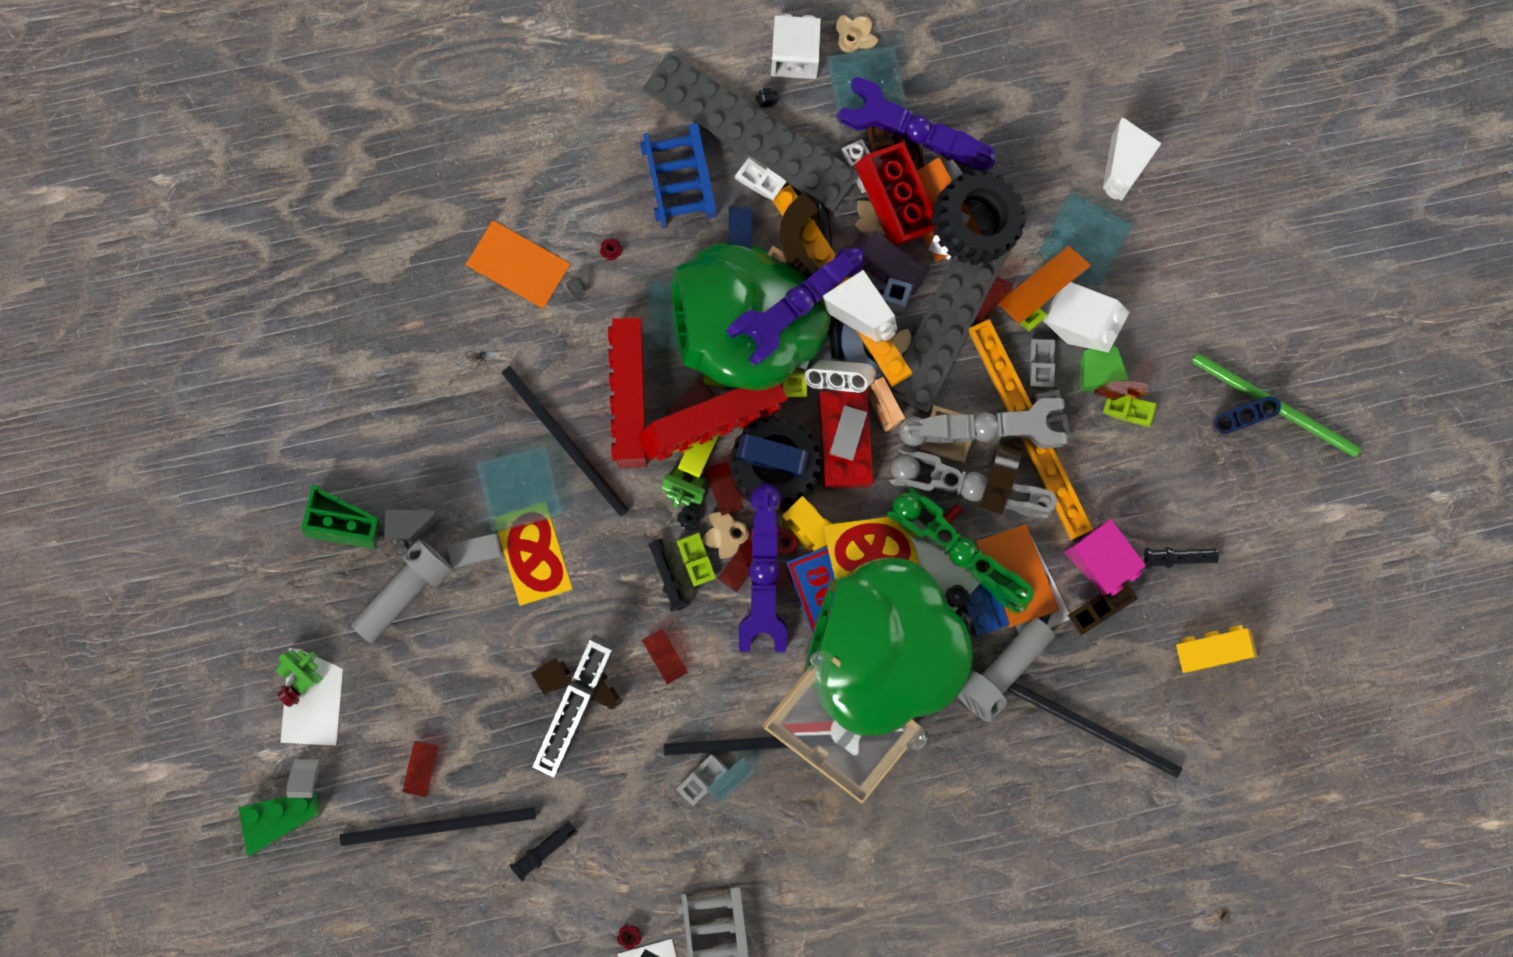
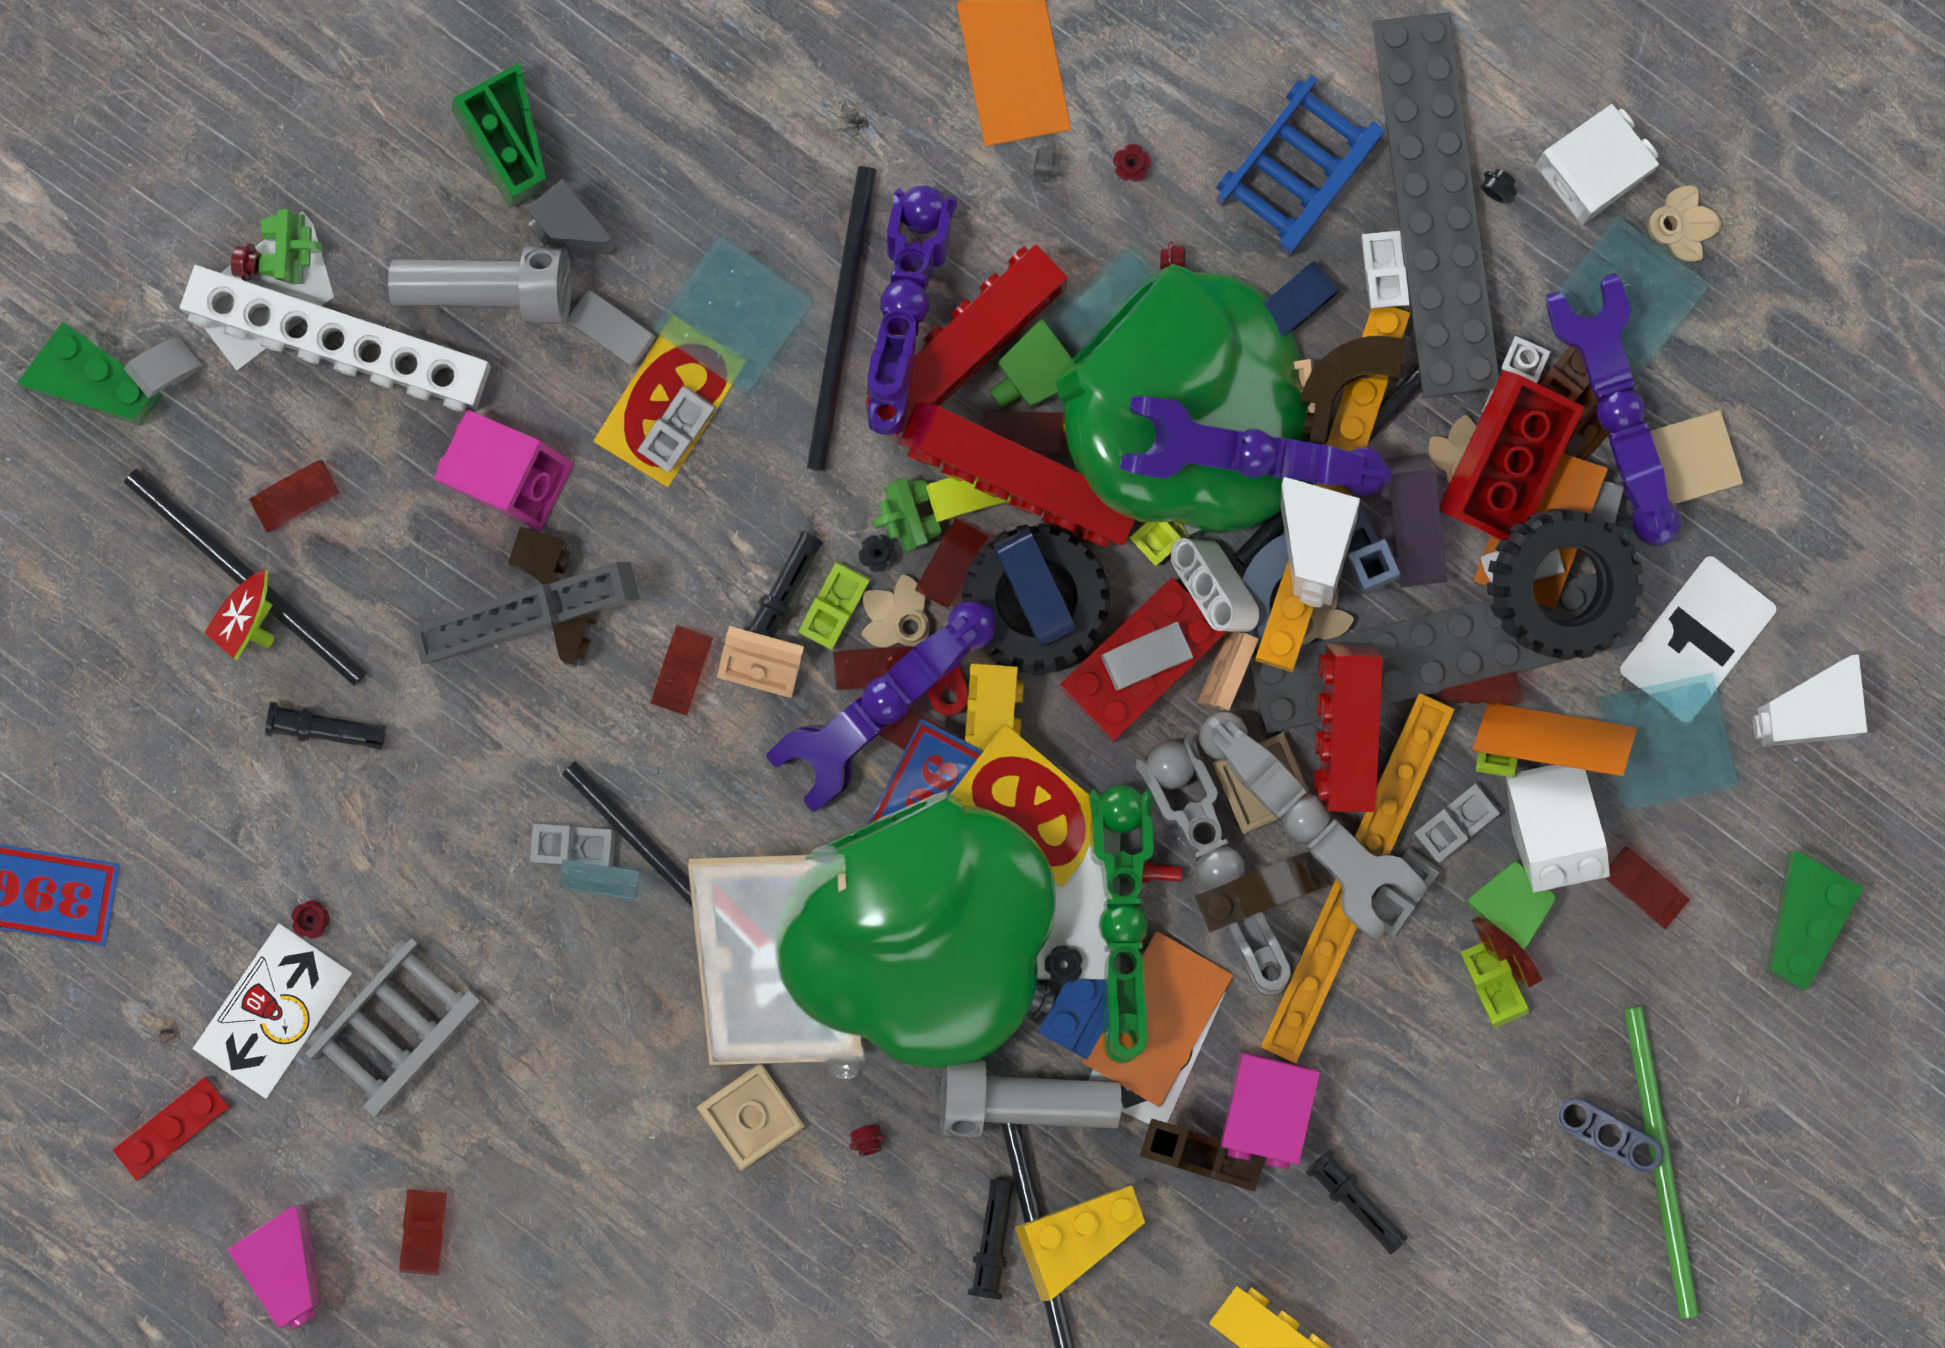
camera: 55 degrees right, 5 degrees up
(285, 722) = (208, 286): none -> white brick
(455, 843) = (241, 617): none -> red shield
(496, 658) = (503, 470): none -> dark pink slope
(549, 561) = (677, 429): none -> light grey slope
(584, 399) = (905, 299): none -> dark purple piece
(666, 374) = (1031, 369): none -> bright green torso
(670, 267) = (1173, 255): none -> dark red plate
(693, 615) = (760, 662): none -> light nougat plate
(903, 805) = (750, 1116): none -> tan tile
(960, 370) = (1349, 727): none -> red brick
(961, 759) = (867, 1140): none -> dark red plate
(967, 114) = (1696, 457): none -> tan tile
(1045, 182) = (1700, 629): none -> white sticker
(1065, 749) = (990, 1258): none -> black pin
(1091, 700) = (1076, 1238): none -> yellow wedge
(1145, 304) = (1646, 887): none -> clear red slope
(1220, 245) = (1808, 919): none -> green wedge

